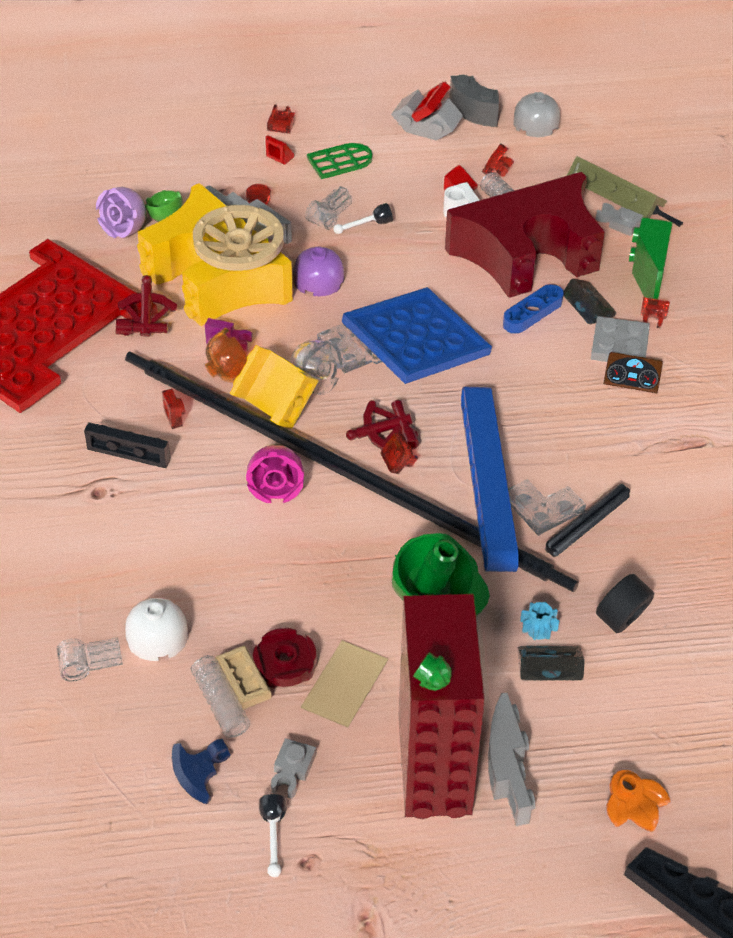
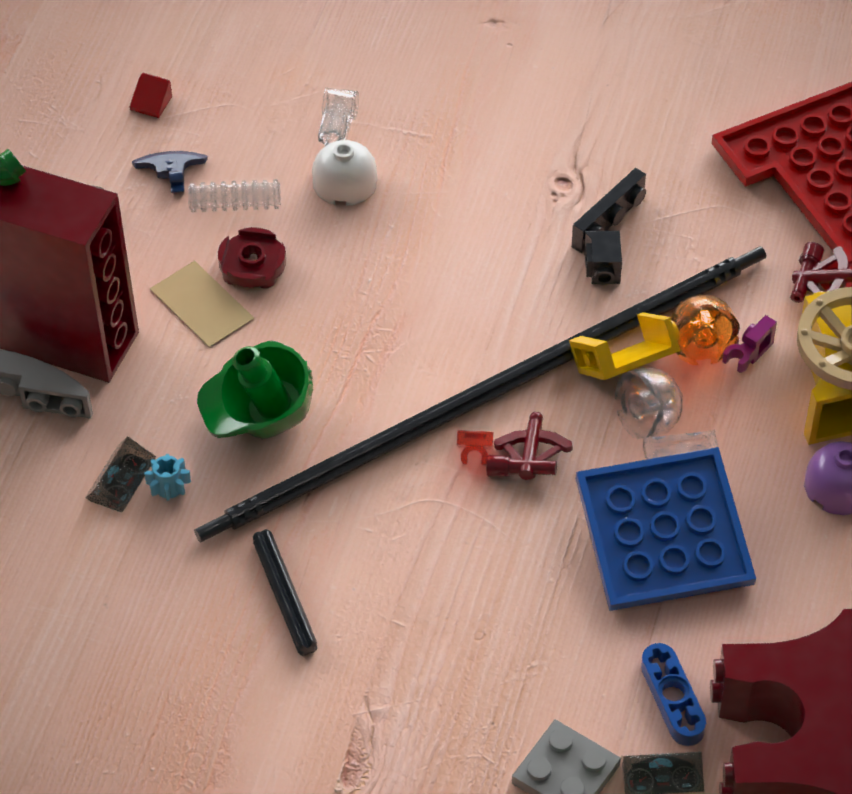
camera: 115 degrees right, 5 degrees up
(117, 819) = (151, 95): none -> red slope
(173, 408) = (648, 261): clear red plate -> none
(181, 432) = (603, 257): none -> black window
(244, 677) = (231, 218): tan plate -> none
(275, 474) = (498, 315): dark pink cylinder -> none
(291, 764) = (138, 233): light grey plate -> none
(489, 481) = (390, 504): blue beam -> none
(544, 512) = (320, 544): clear plate -> none
(625, 603) = (136, 554): black tyre -> none
(633, 372) = (495, 752): slope -> none

